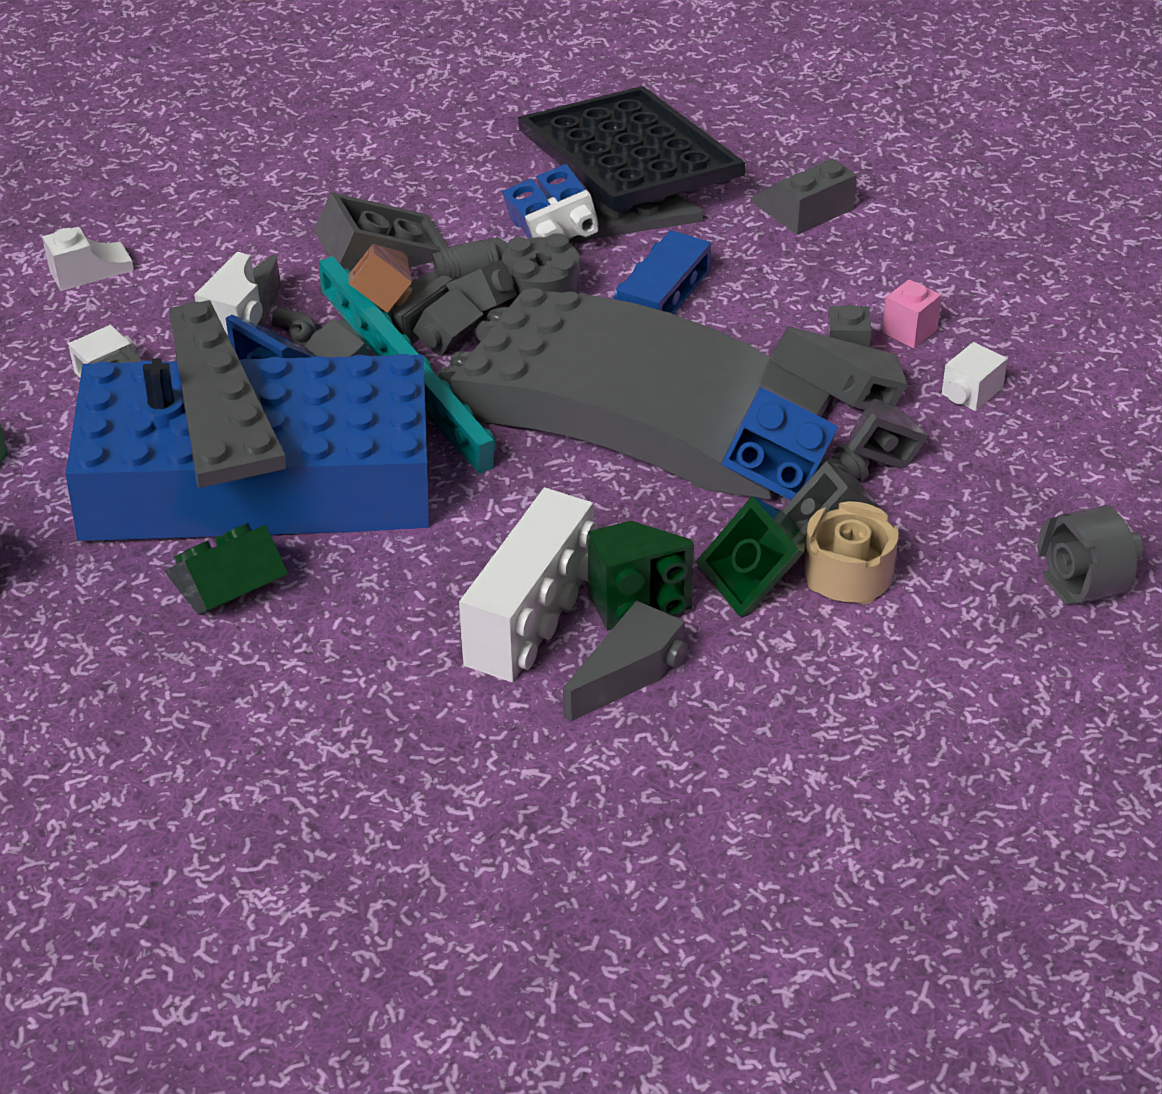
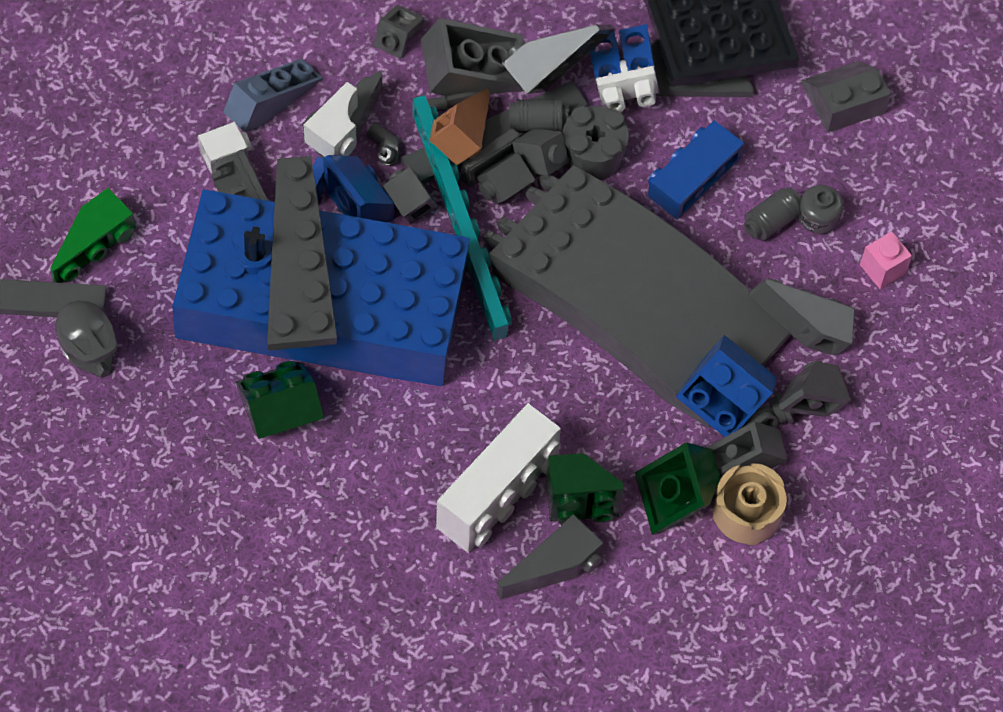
camera: 10 degrees right, 20 degrees up
(79, 261) = (228, 28): white arch -> none
(143, 305) = (268, 93): none -> sand blue slope
(281, 232) = (396, 29): none -> dark grey bracket
(472, 196) = (547, 59): none -> slope
(767, 300) = (772, 214): none -> dark grey head
(819, 284) = (820, 209): none -> dark grey head
(850, 324) = (825, 272): dark grey brick -> none
(974, 376) = (912, 341): white brick -> none
(1089, 554) = (928, 554): dark grey brick -> none

